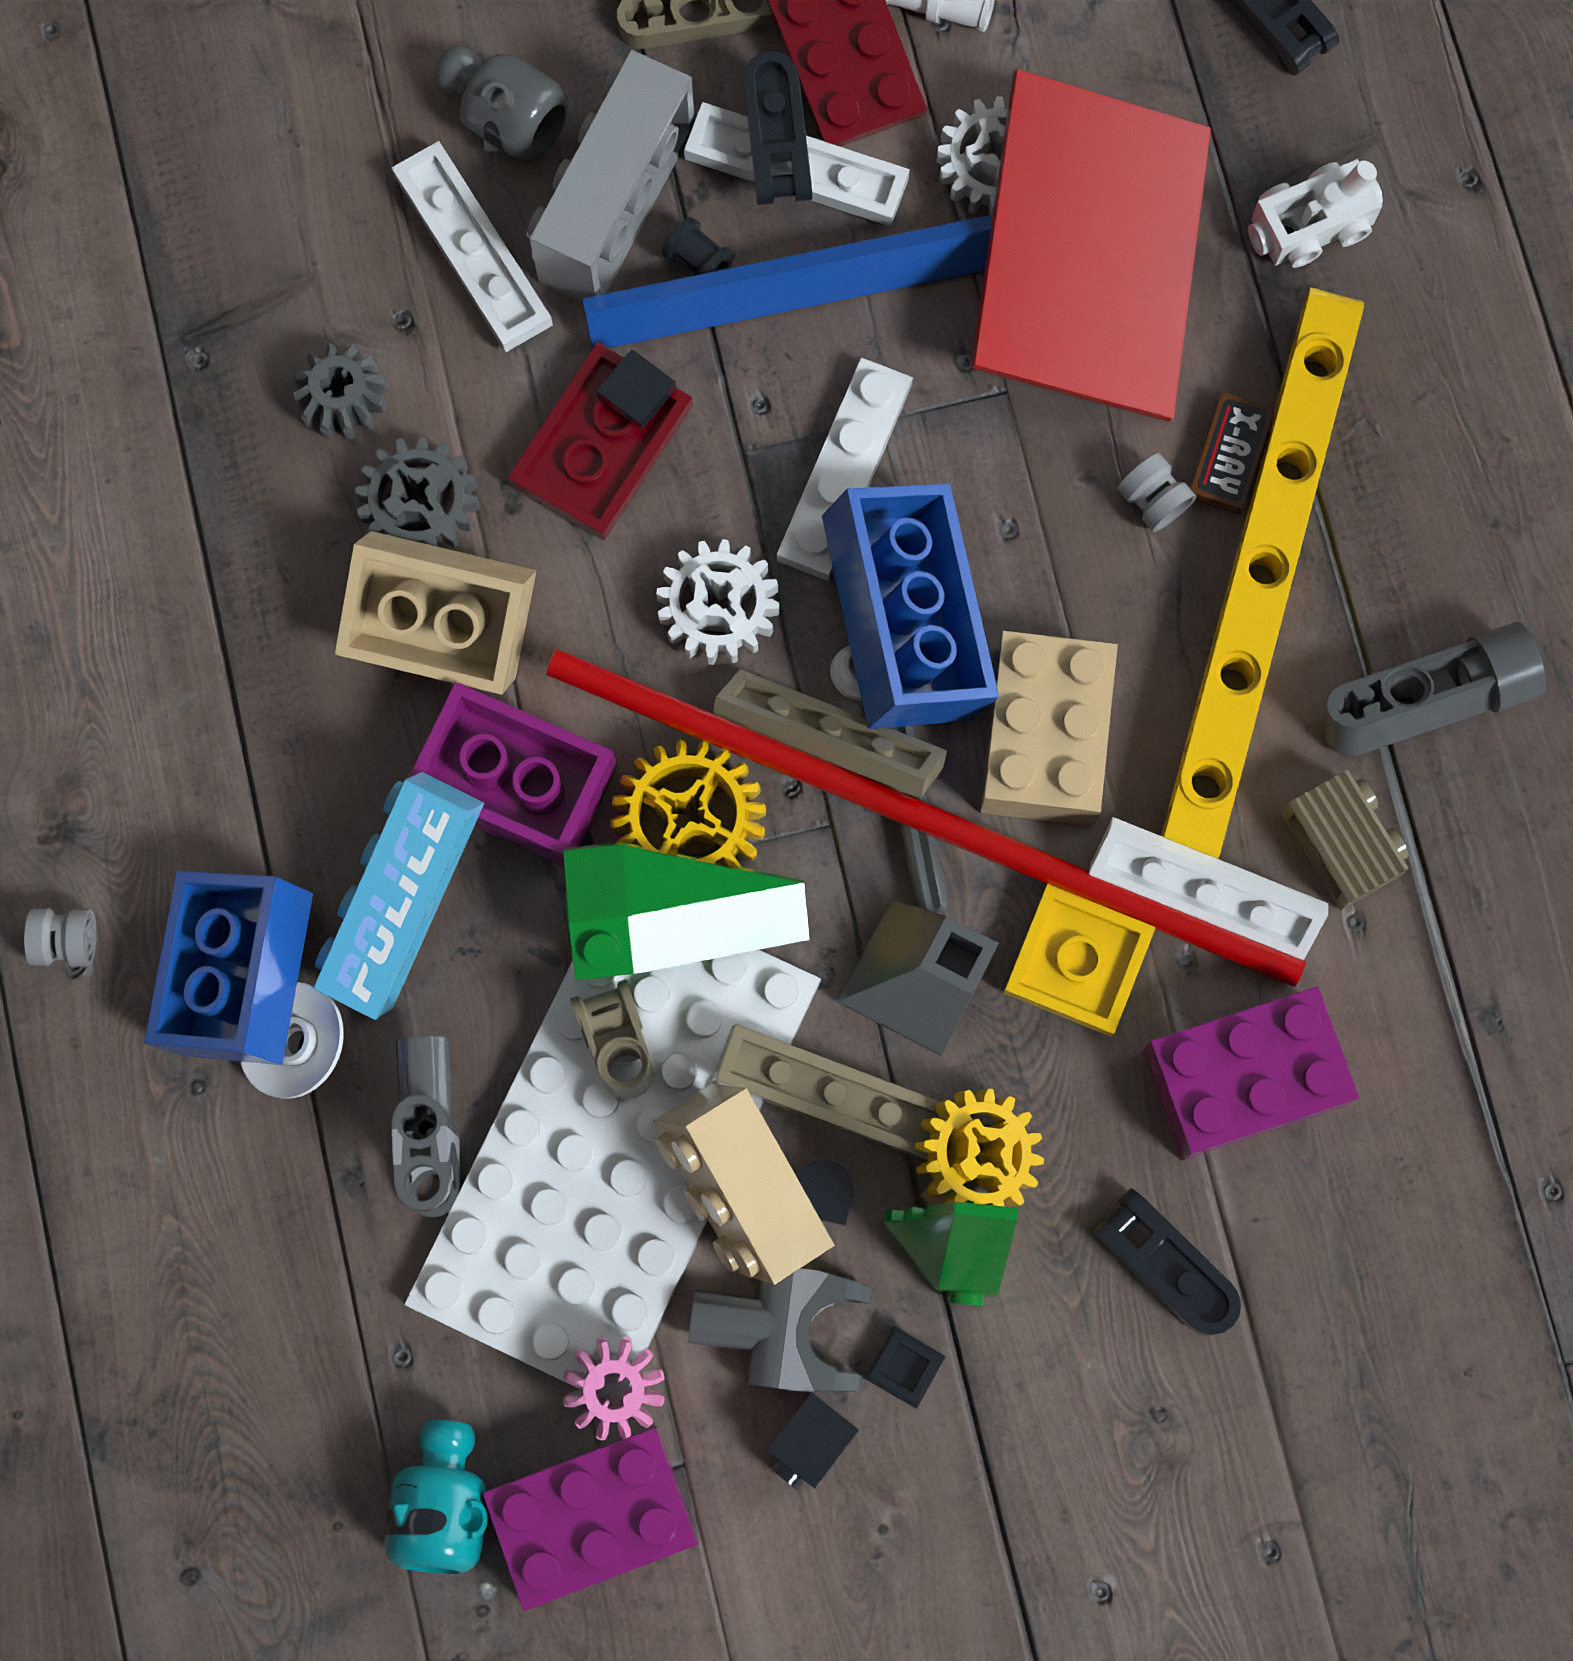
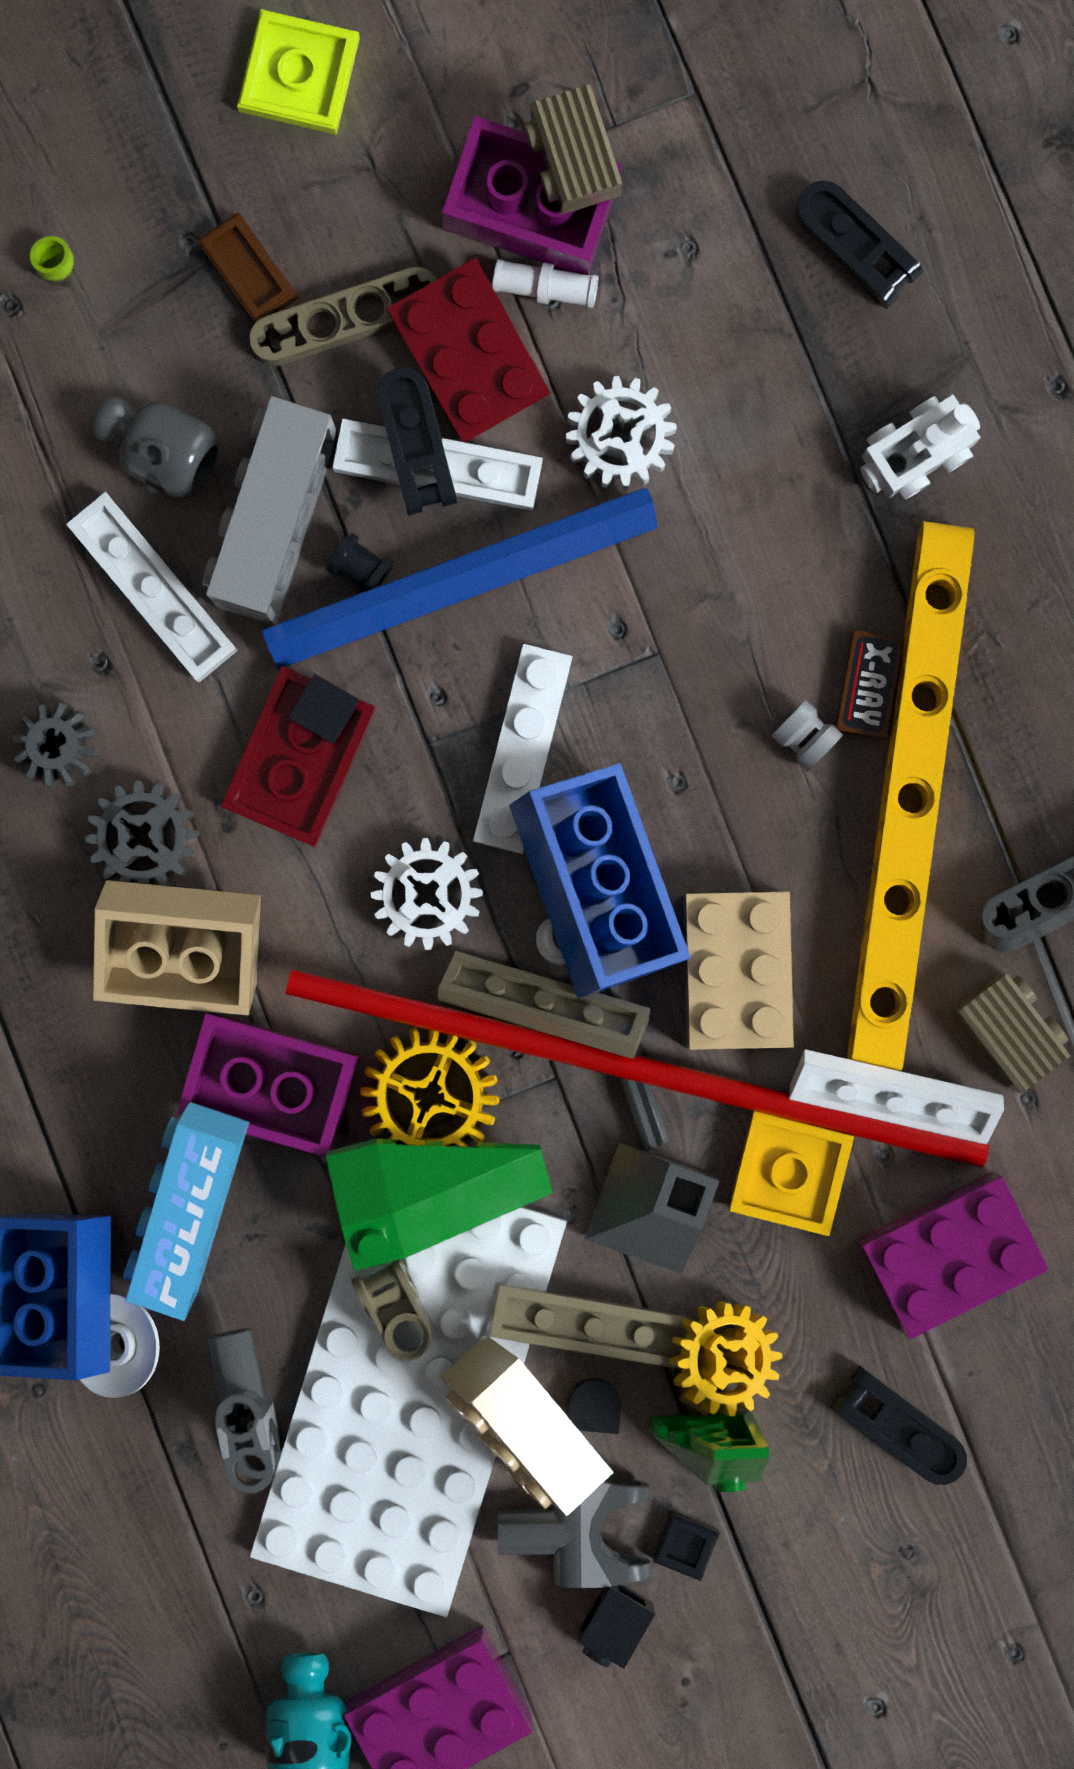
camera: 10 degrees left, 10 degrees up
(595, 1379) = (435, 1629): bright pink gear -> none
(1091, 247) = (719, 510): piece -> none

